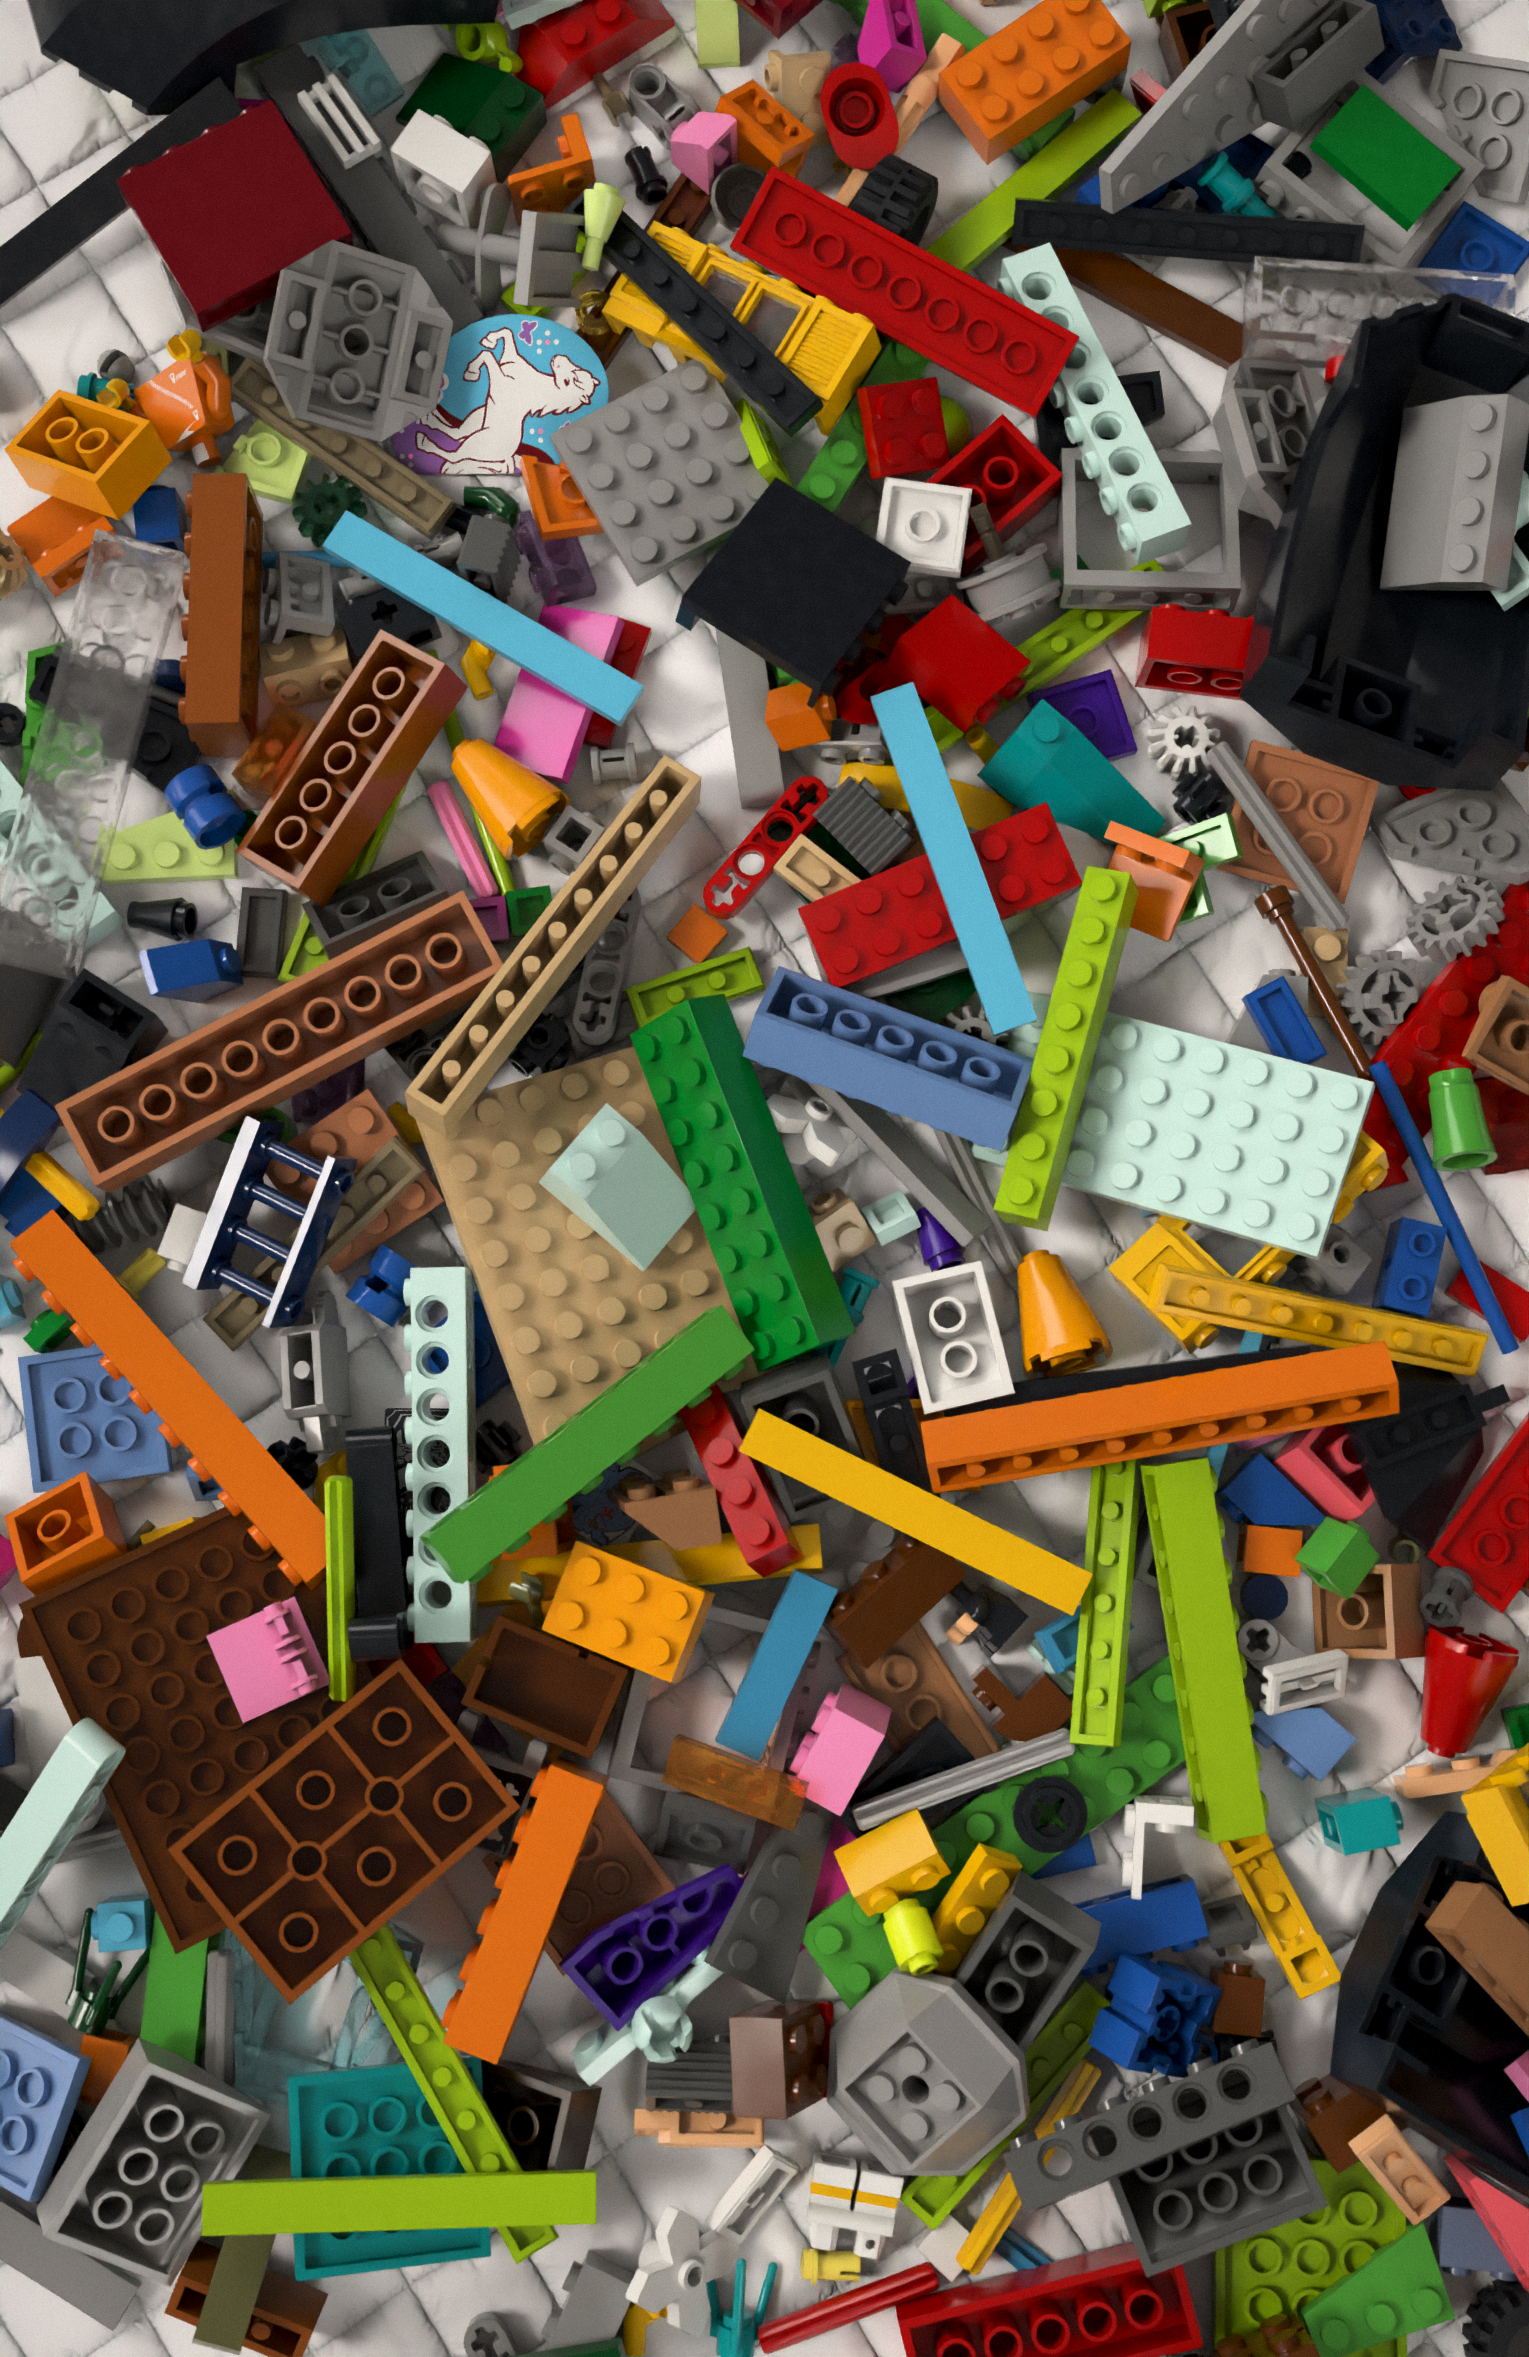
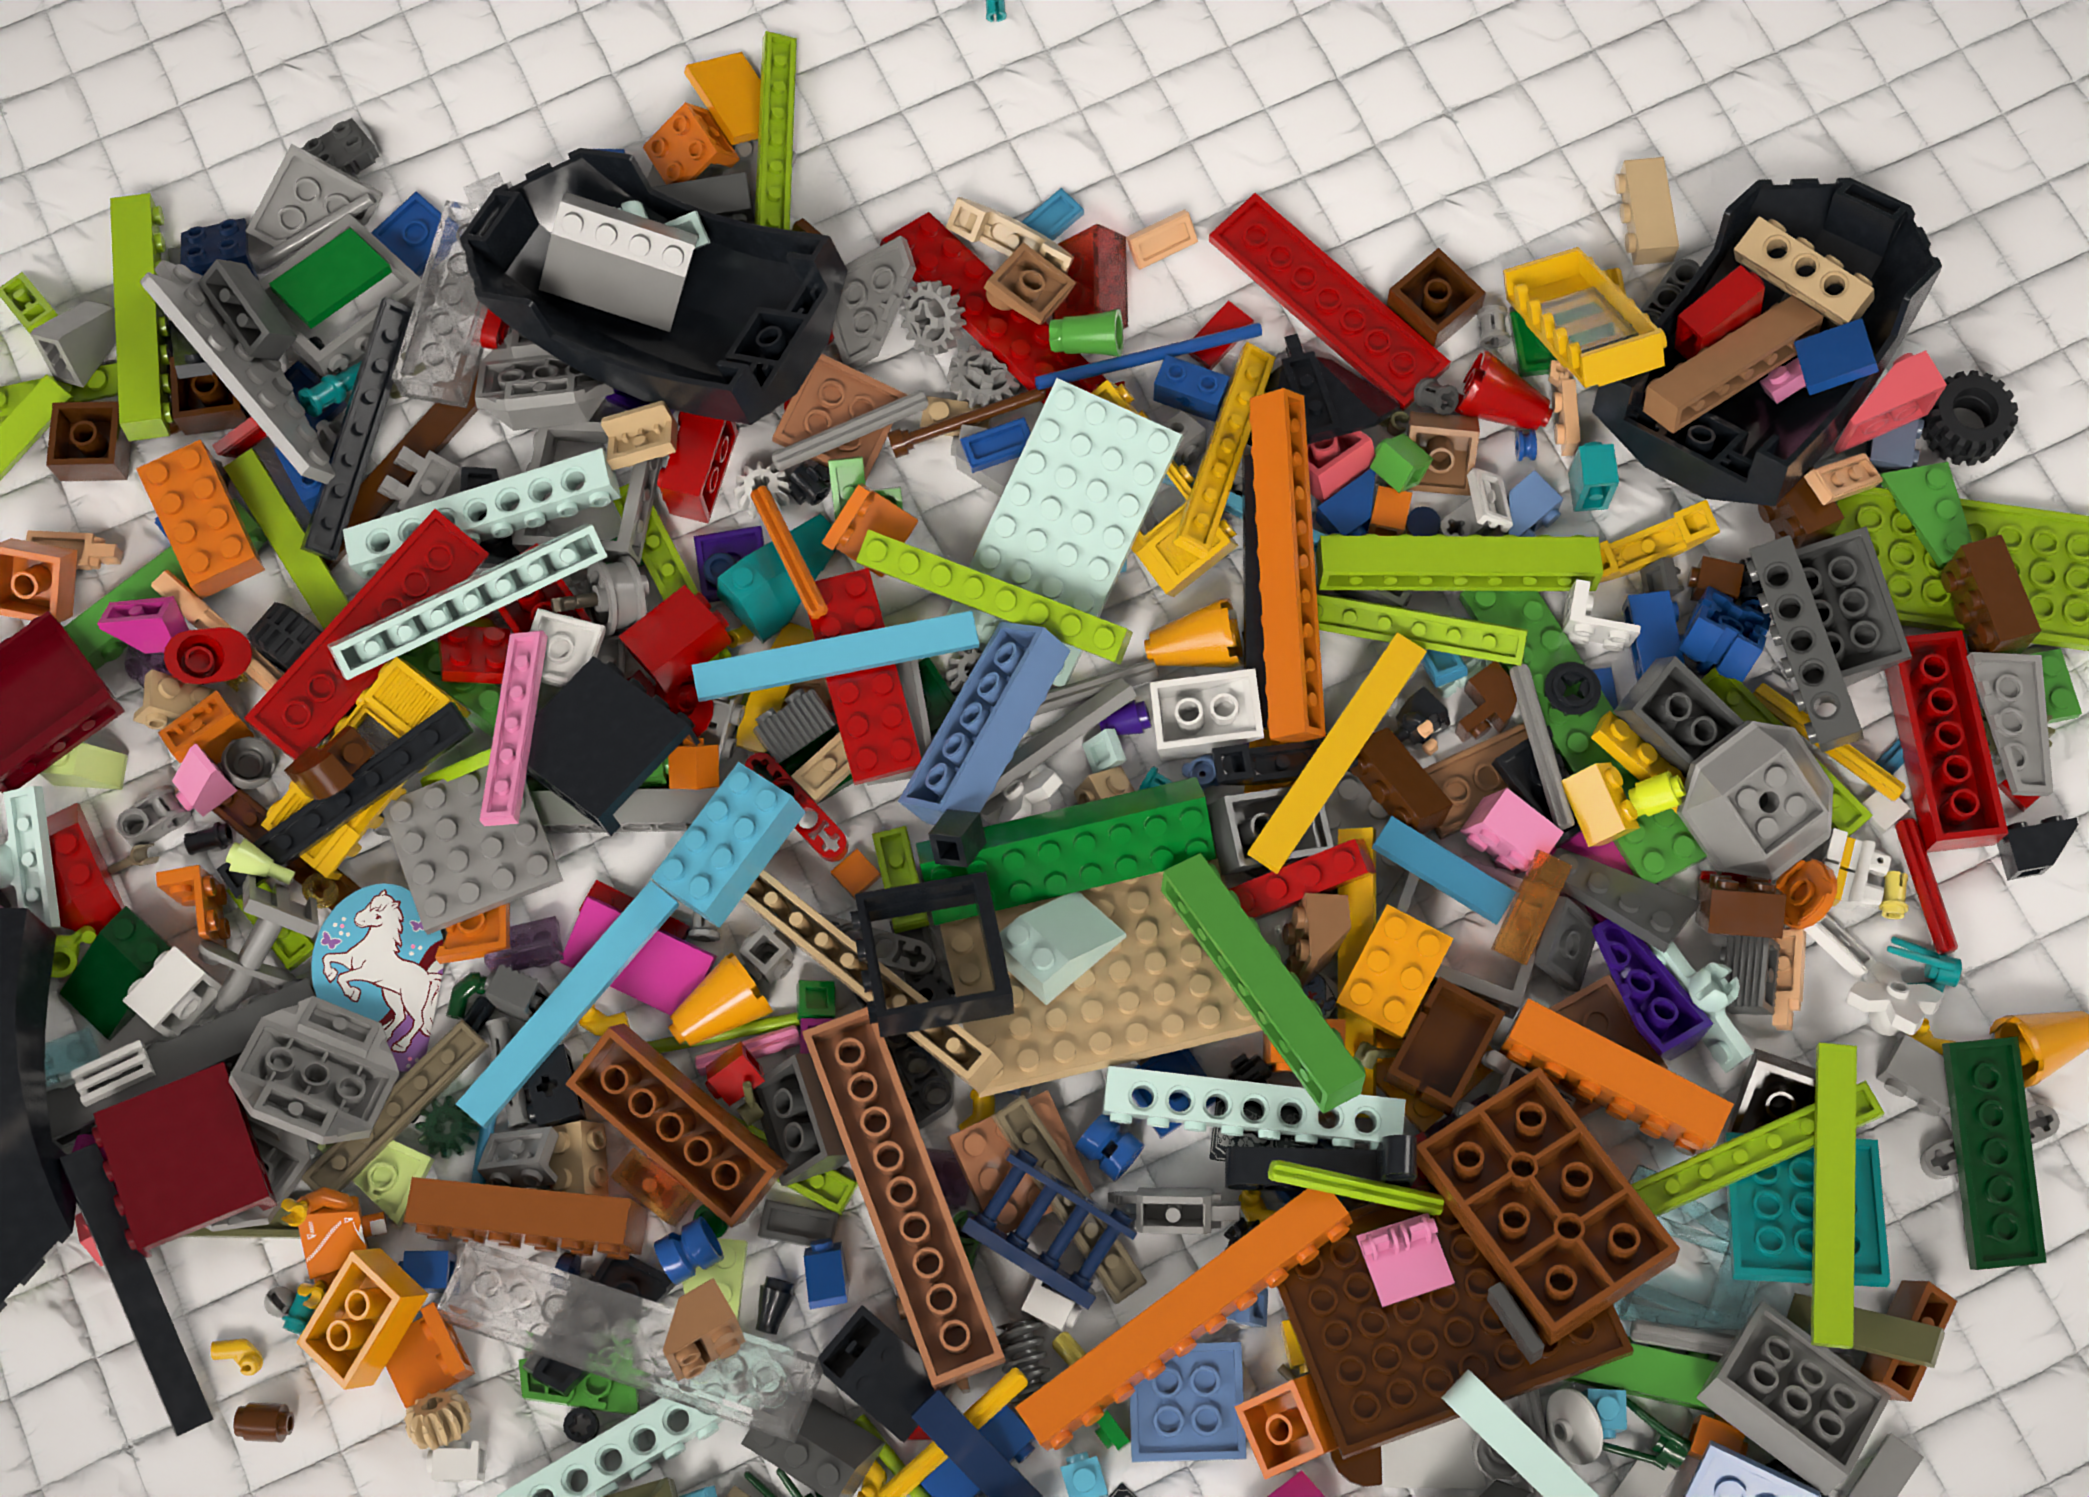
camera: 80 degrees left, 10 degrees down
(56, 337) = (241, 1351): none -> yellow arm
(79, 823) = (701, 1331): none -> medium nougat slope
(99, 1888) = (1574, 1426): none -> white dish
(192, 1803) = (1515, 1322): none -> dark grey tile
(385, 851) = (750, 1109): none -> olive hand
(425, 827) = (730, 1071): none -> red brick
(563, 949) = (920, 899): none -> black window
(692, 768) = (728, 844): none -> medium azure brick
(721, 277) = (329, 769): none -> reddish brown brick
(721, 1039) = (957, 838): none -> black brick
(800, 483) = (513, 729): none -> bright pink tile
(811, 2146) = (1809, 892): none -> orange tile
(882, 1332) = (1201, 764): none -> medium blue plate
(958, 396) = (467, 601): none -> light aqua brick
(1071, 704) = (717, 565): none -> dark blue tile
(1087, 780) = (789, 552): none -> orange axle
(1128, 335) = (428, 484): none -> light grey plate
(1217, 569) = (640, 435): none -> tan bracket
(1396, 1725) = (1525, 445): none -> blue bush
(1448, 125) = (309, 234): none -> light grey bar

